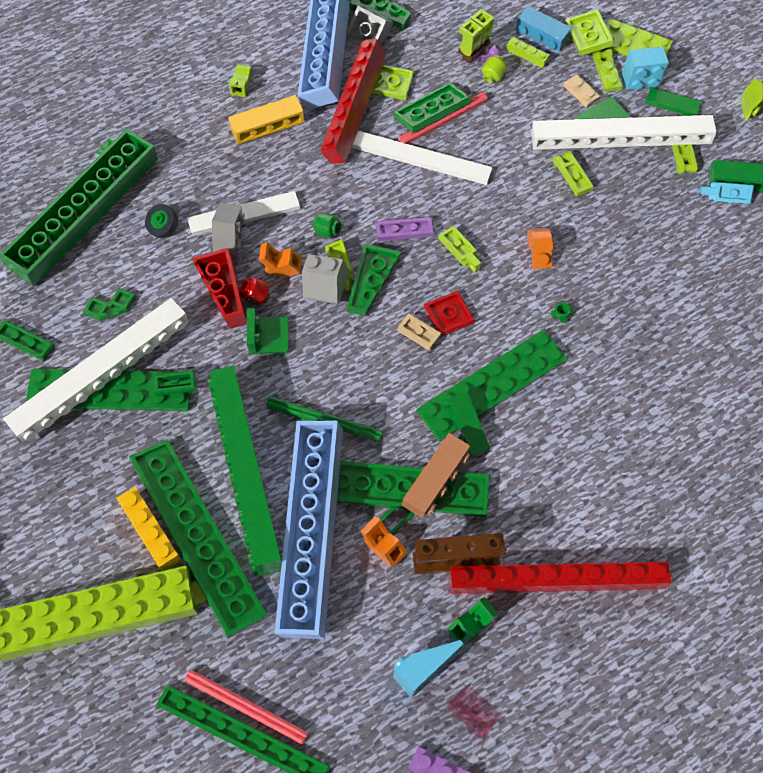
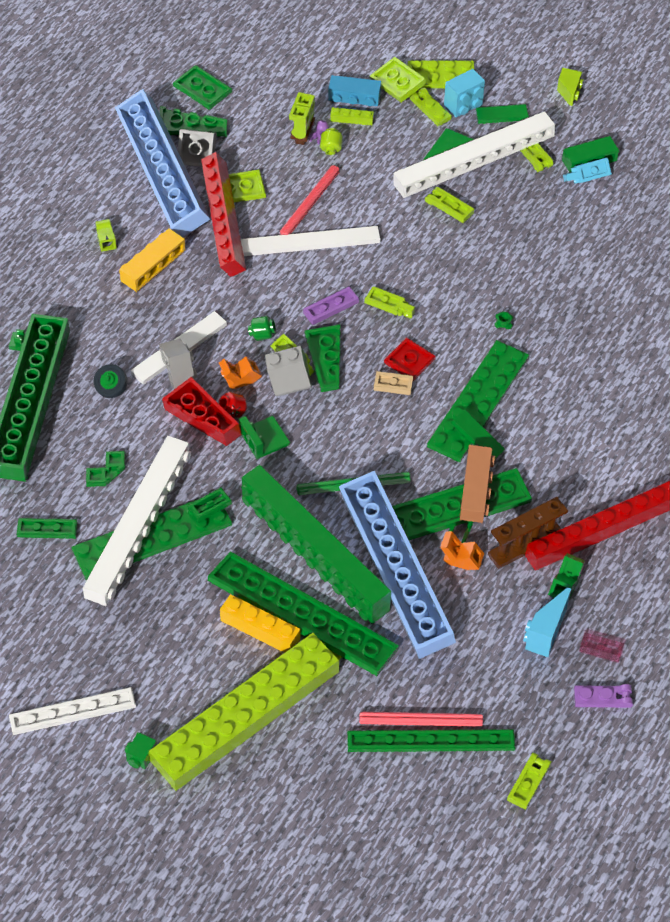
camera: 25 degrees left, 10 degrees down
(431, 107) = (294, 195): green tile -> none
(541, 247) = (458, 272): orange brick -> none
(581, 90) = (417, 132): tan plate -> none

